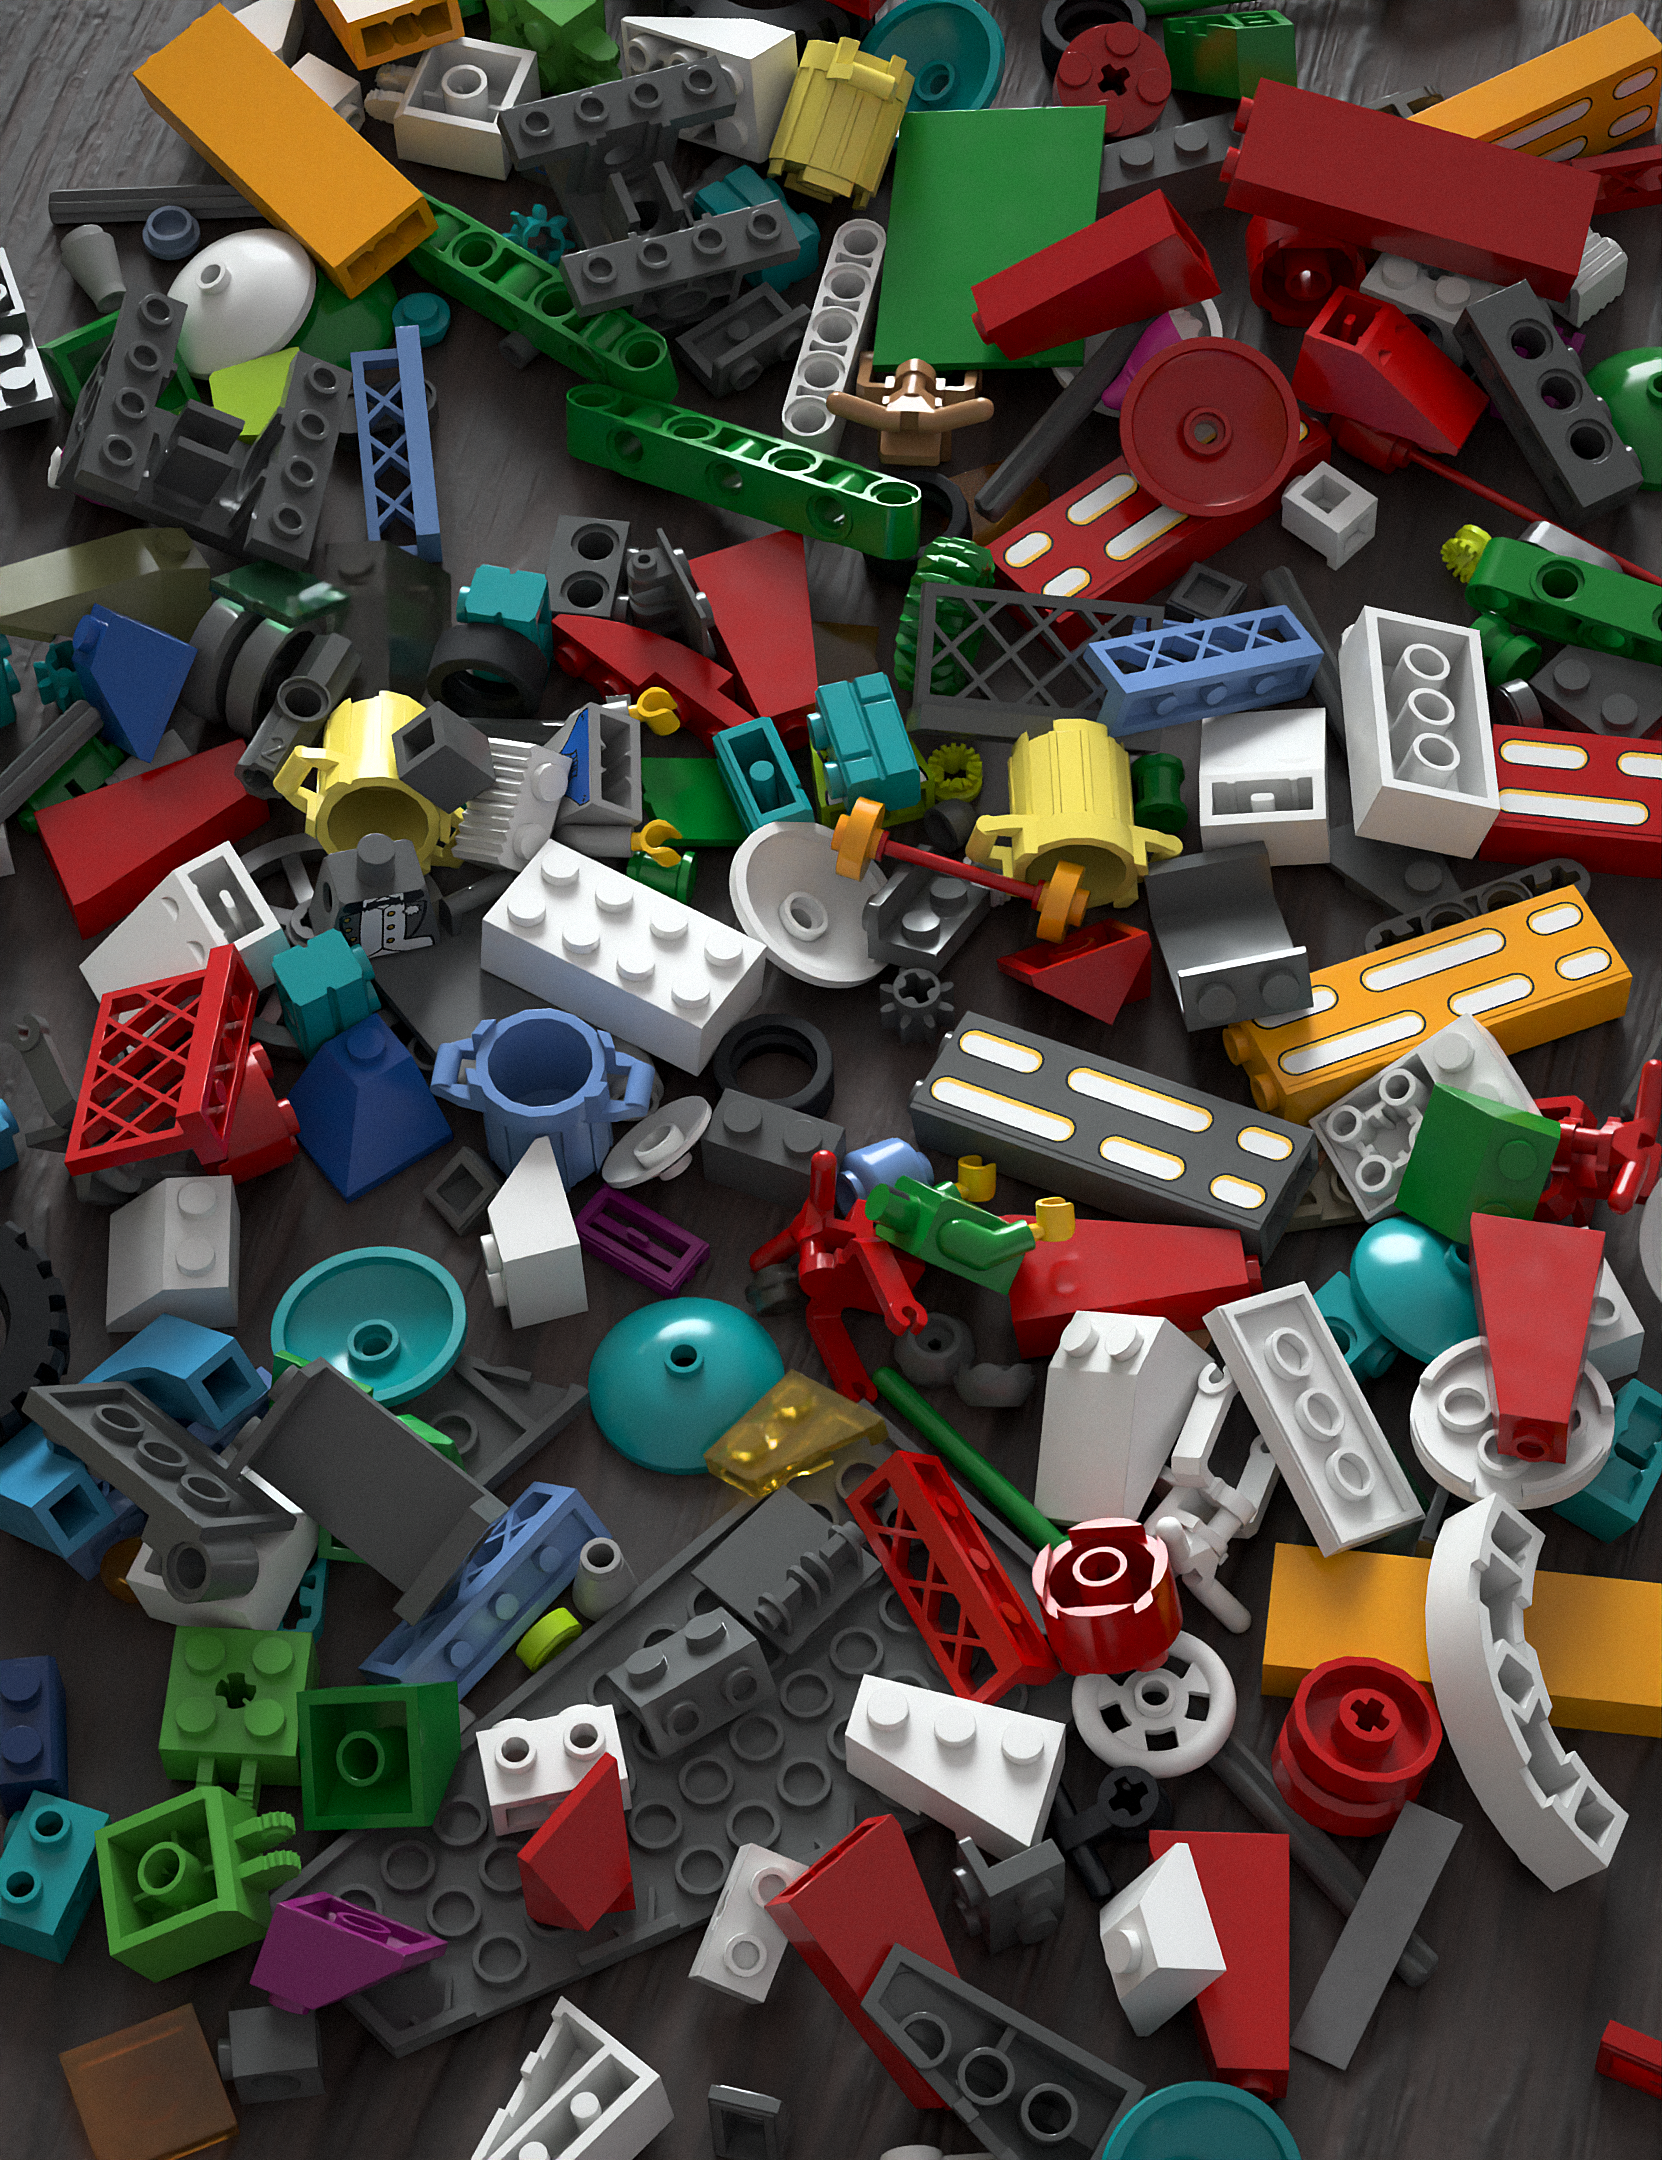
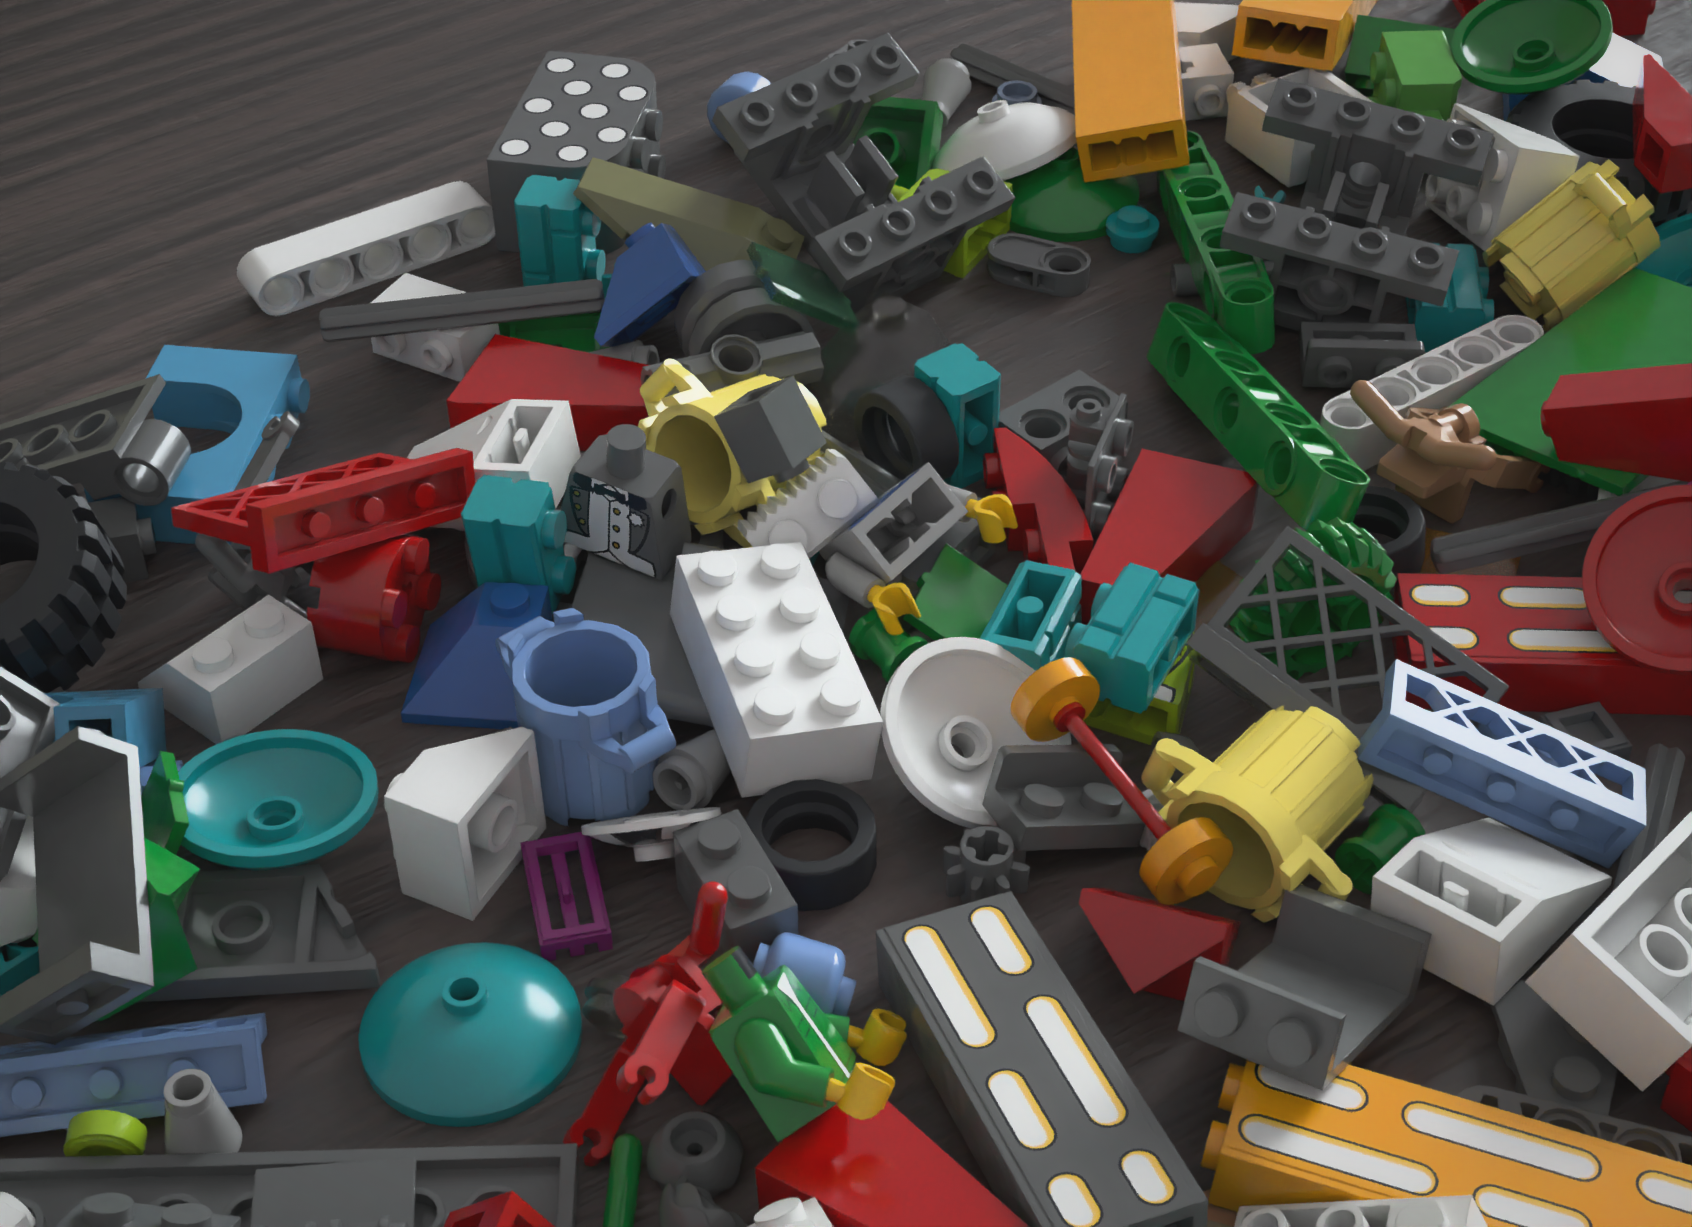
camera: 40 degrees right, 15 degrees down
(415, 439) = (1018, 291): medium blue fence -> none
(790, 1435) = (473, 1122): clear yellow wing -> none
(952, 760) = (1219, 714): neon yellow bush -> none

